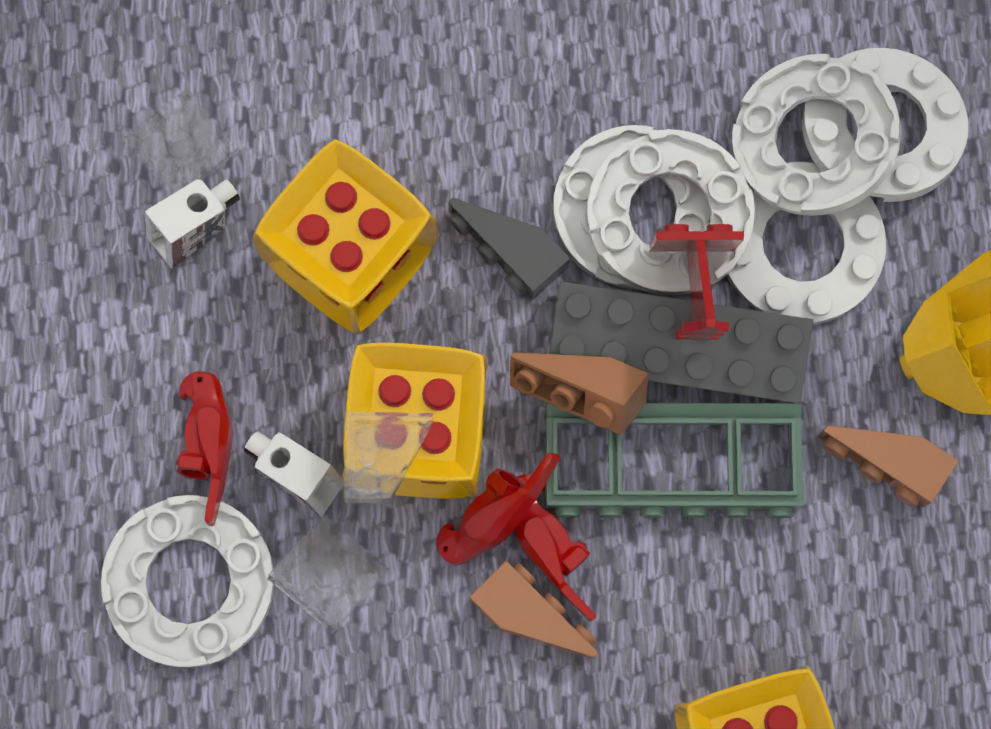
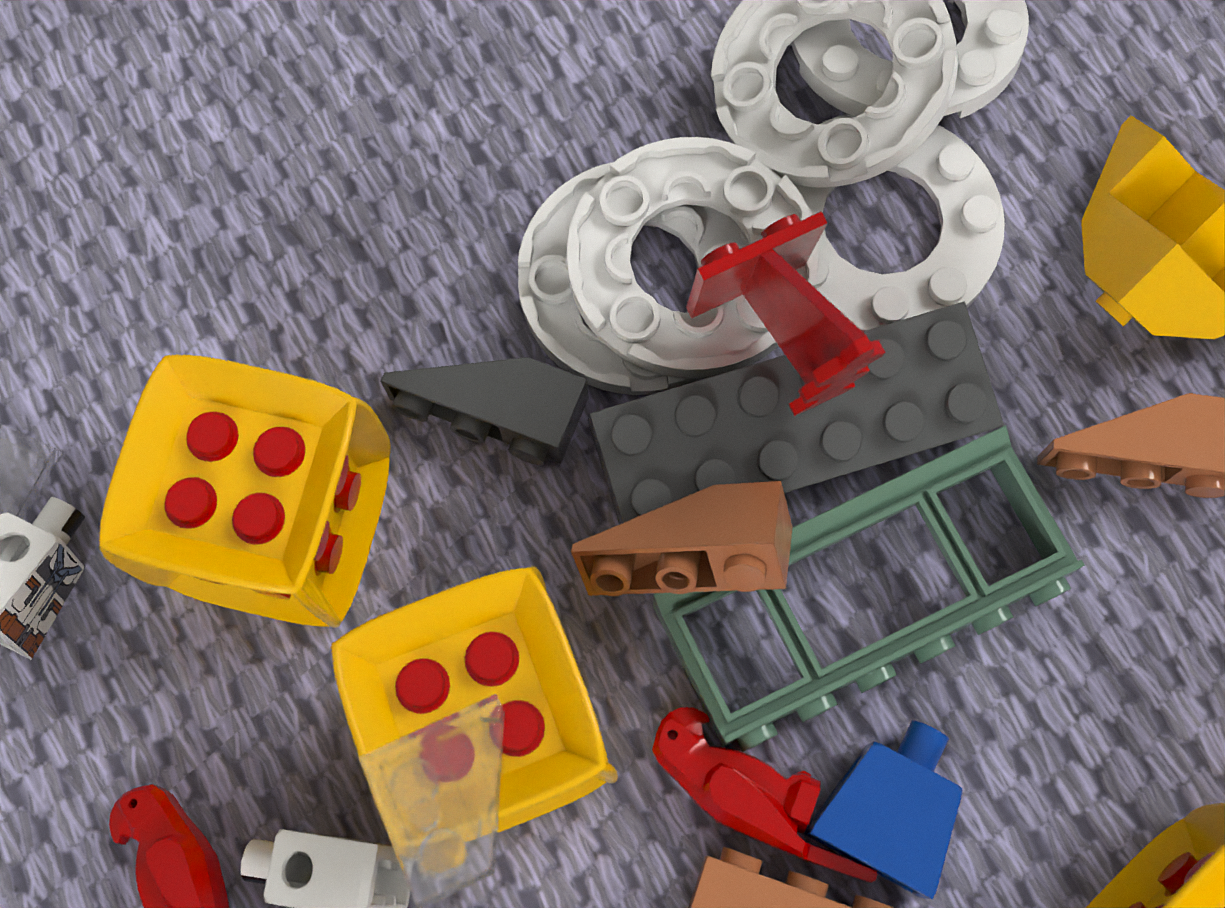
camera: 20 degrees left, 5 degrees down
(493, 513) = (655, 794): red animal -> none
(622, 588) = (894, 811): none -> blue torso

